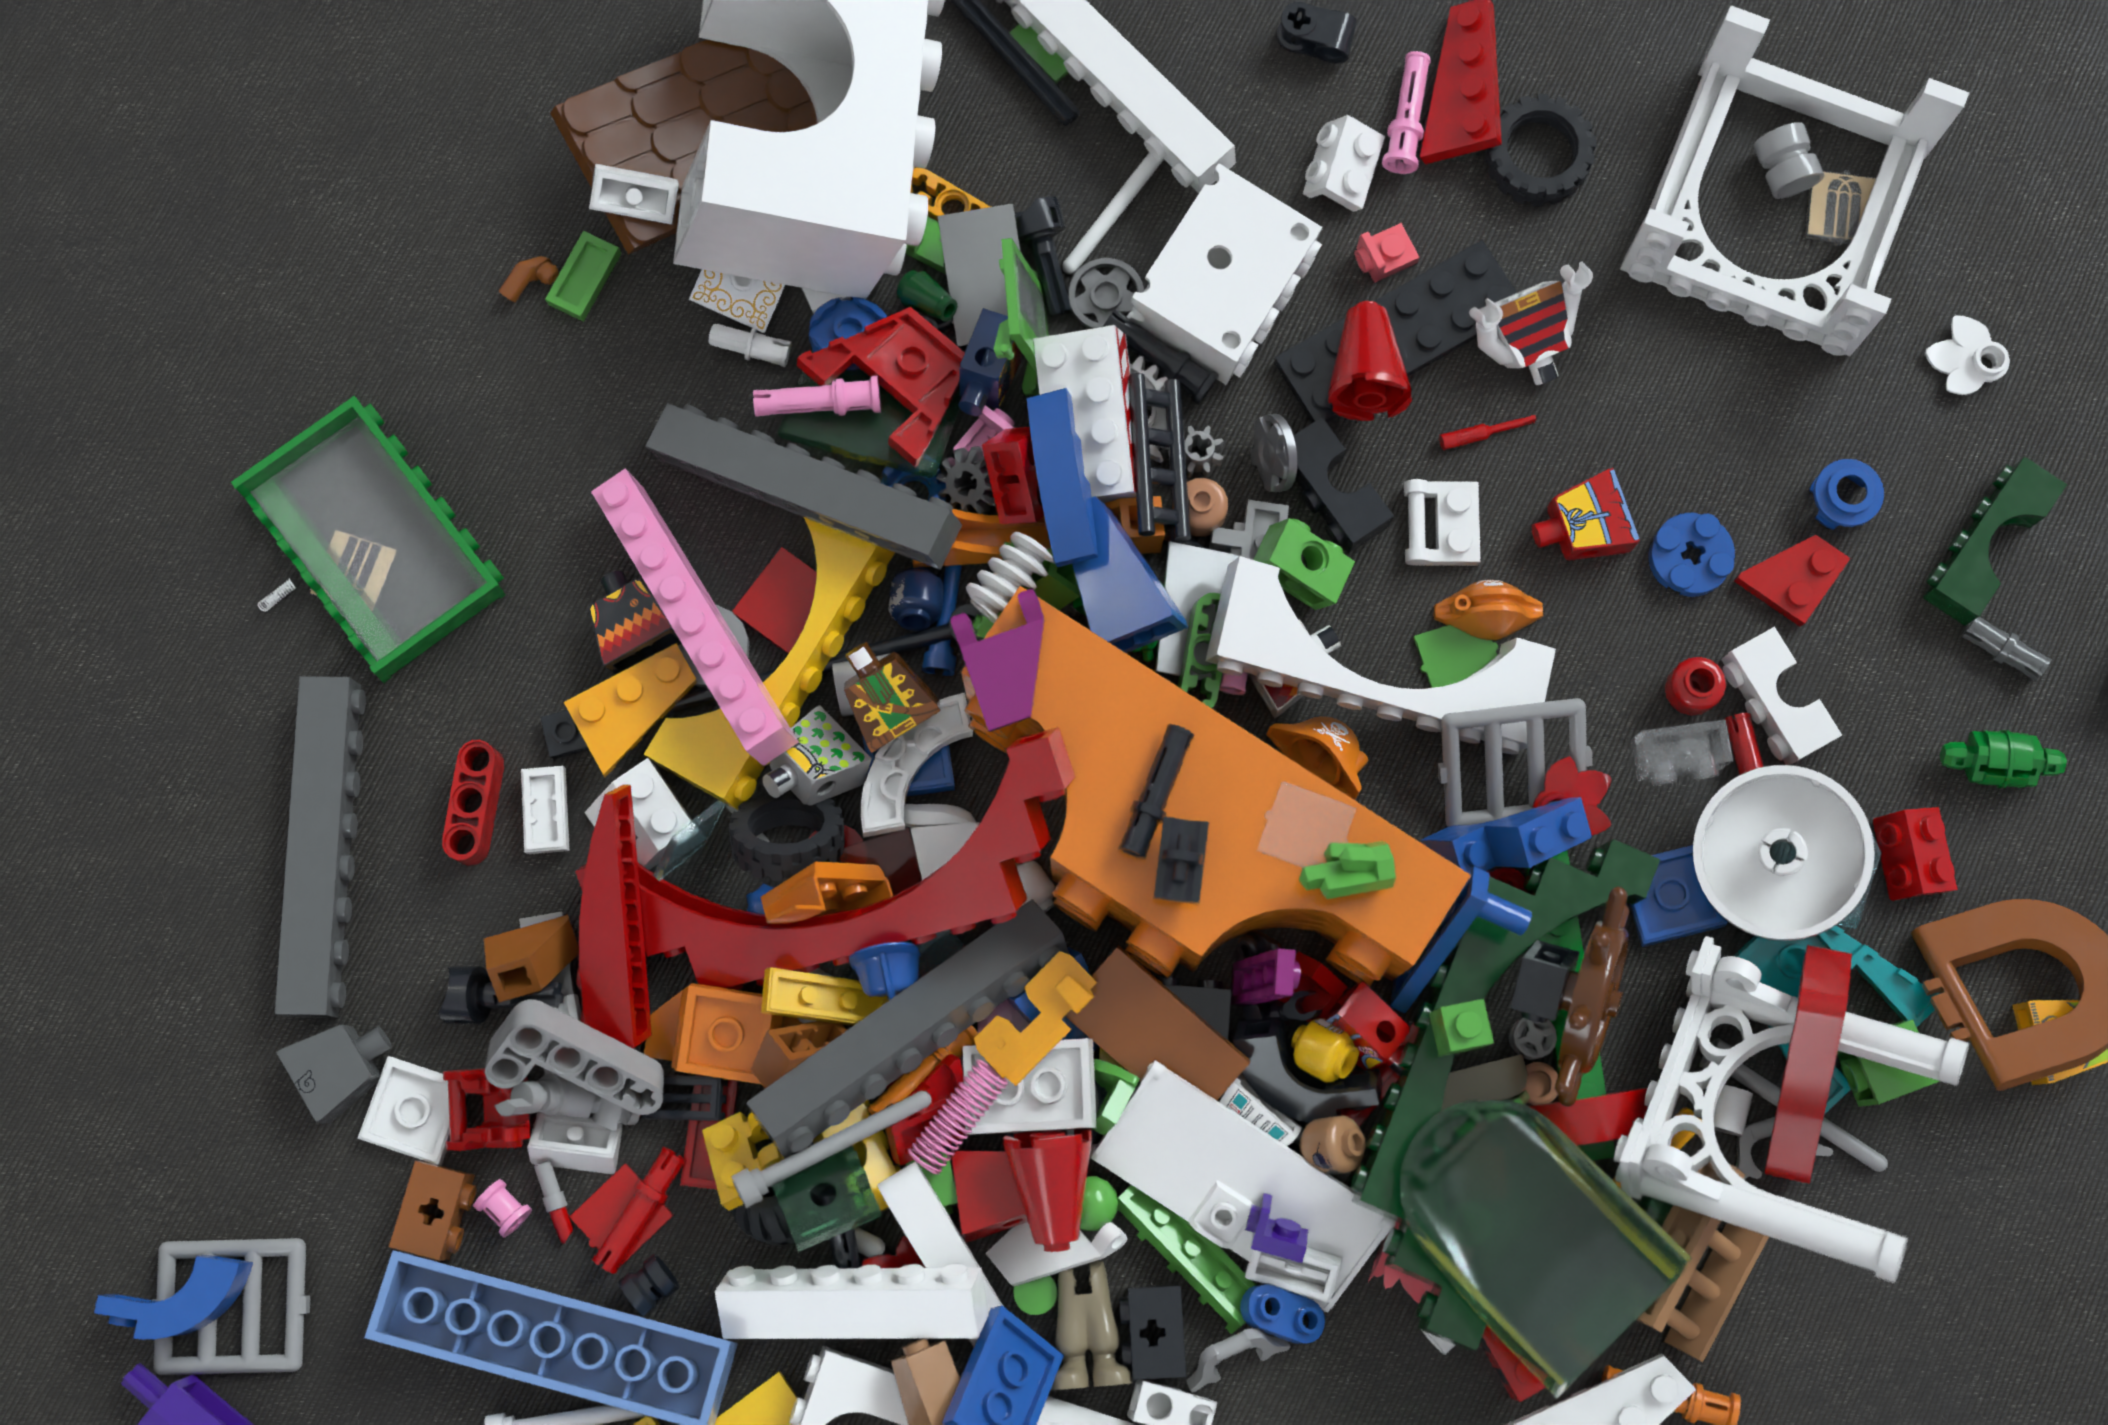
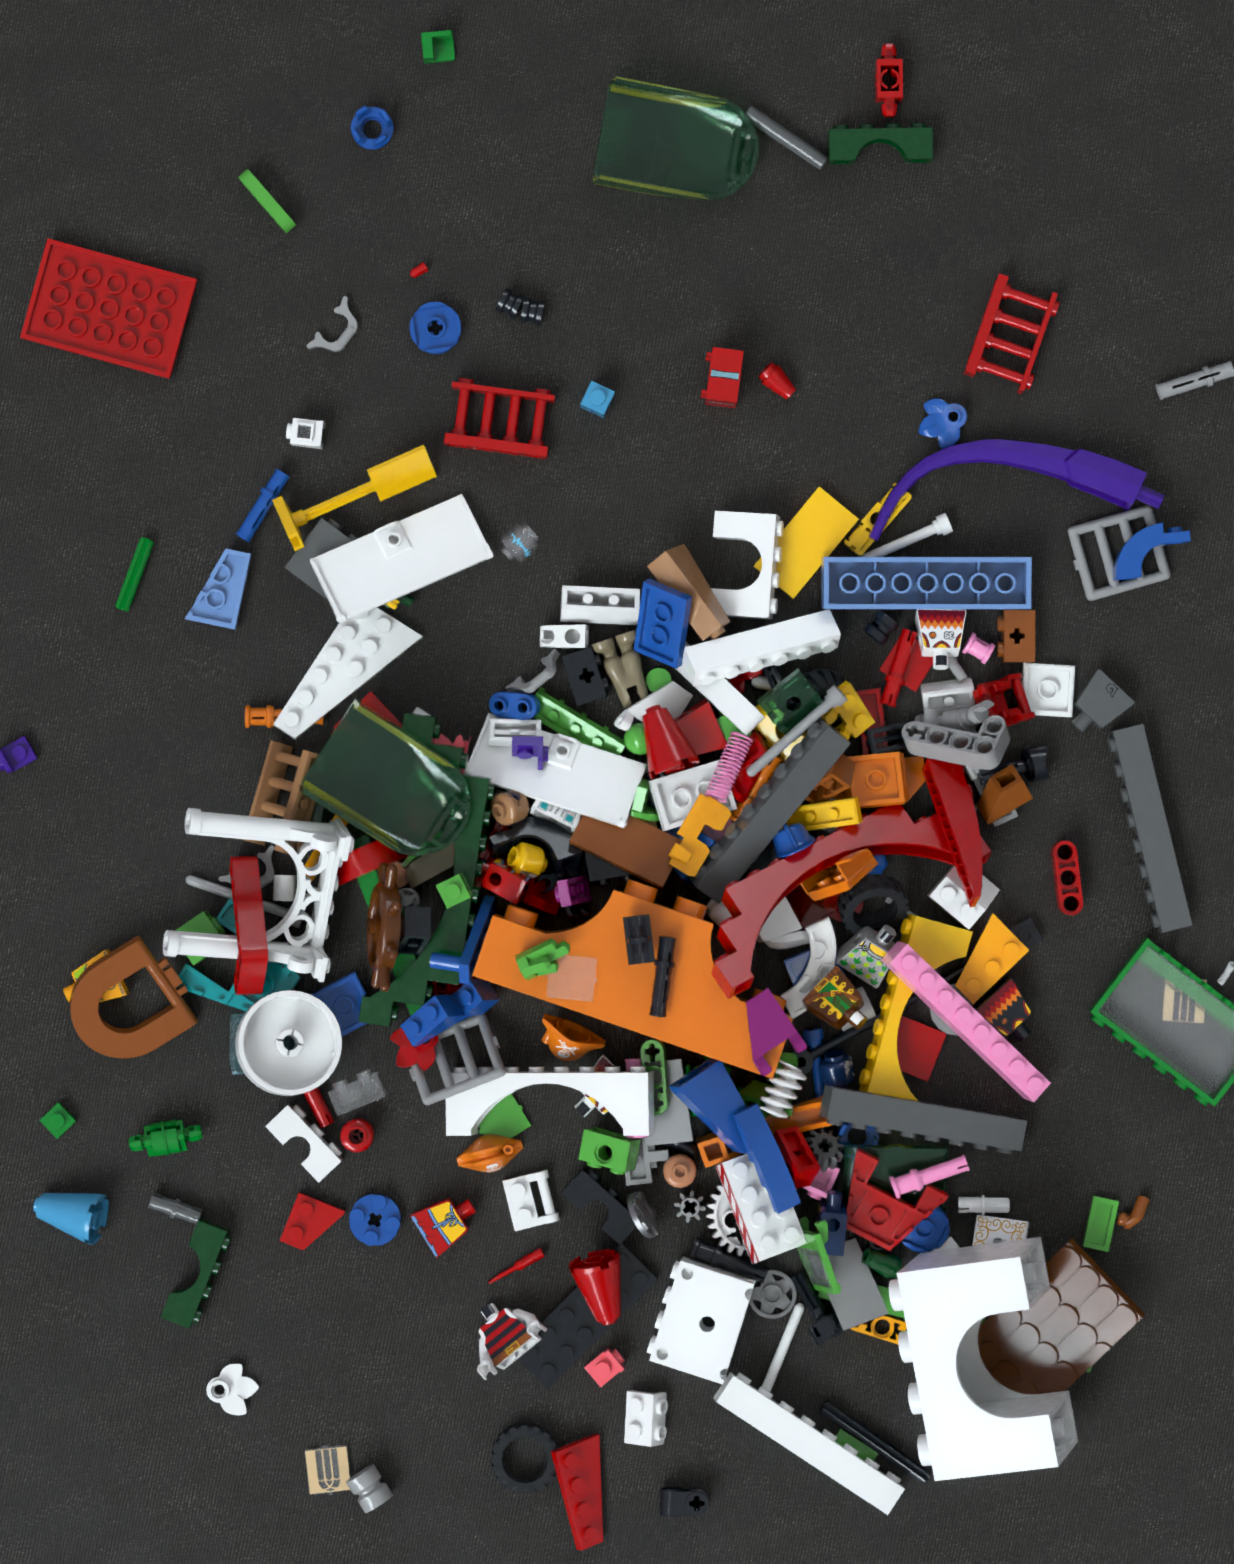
camera: 165 degrees right, 10 degrees up
(545, 810) = (1023, 884): white plate -> none
(555, 1248) = (940, 634): none -> torso
(633, 194) = (1077, 1275): white slope -> none
(688, 840) = (930, 886): clear light blue piece -> none
(1145, 474) = (716, 1177): black bar -> none
(1405, 129) = (612, 1449): bright pink pin -> none
(1835, 511) = (299, 1268): blue piece -> none
(1856, 307) = (315, 1390): white arch -> none
(1914, 853) = (205, 1068): red bracket -> none

